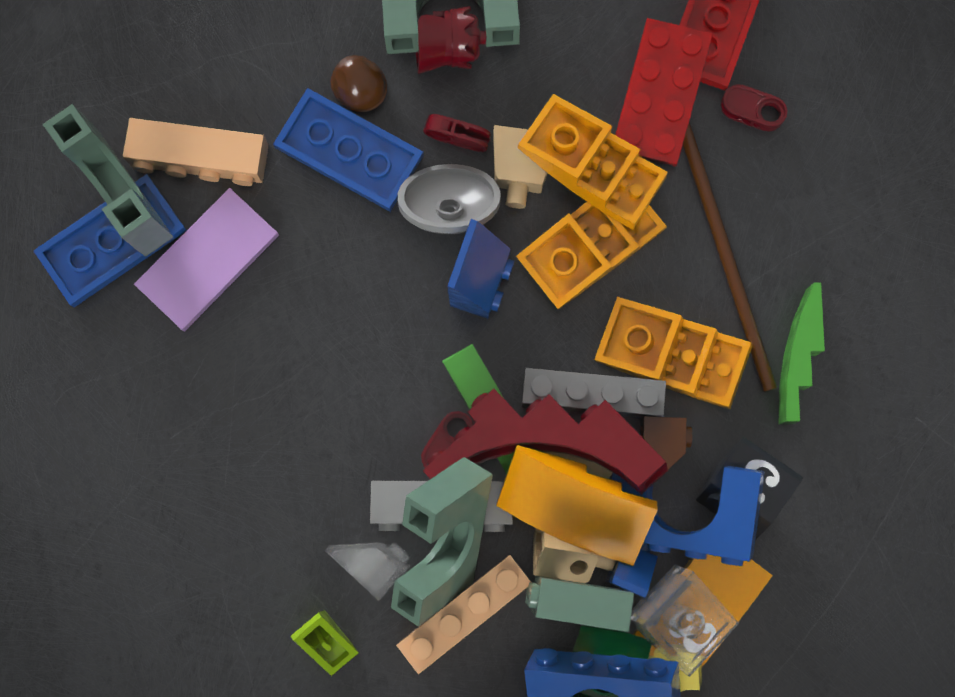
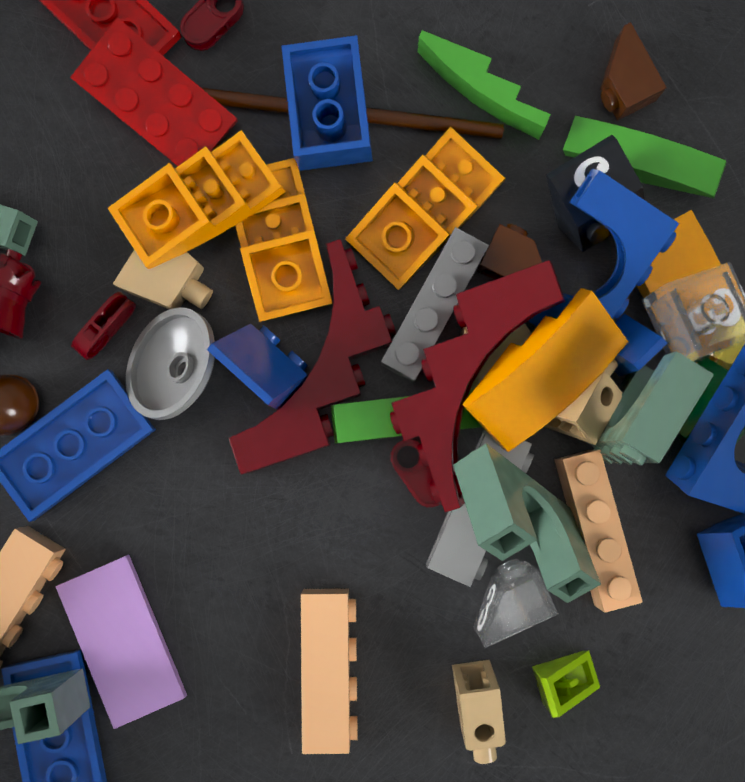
camera: 65 degrees left, 5 degrees up
(251, 435) = (326, 671): none -> light nougat brick
(270, 575) = (479, 709): none -> tan torso
(539, 336) = (352, 334): none -> dark red arch
(721, 231) = (326, 103): none -> blue slope
(805, 524) = (652, 157): none -> bright green slope
(866, 477) = (630, 76): none -> reddish brown slope

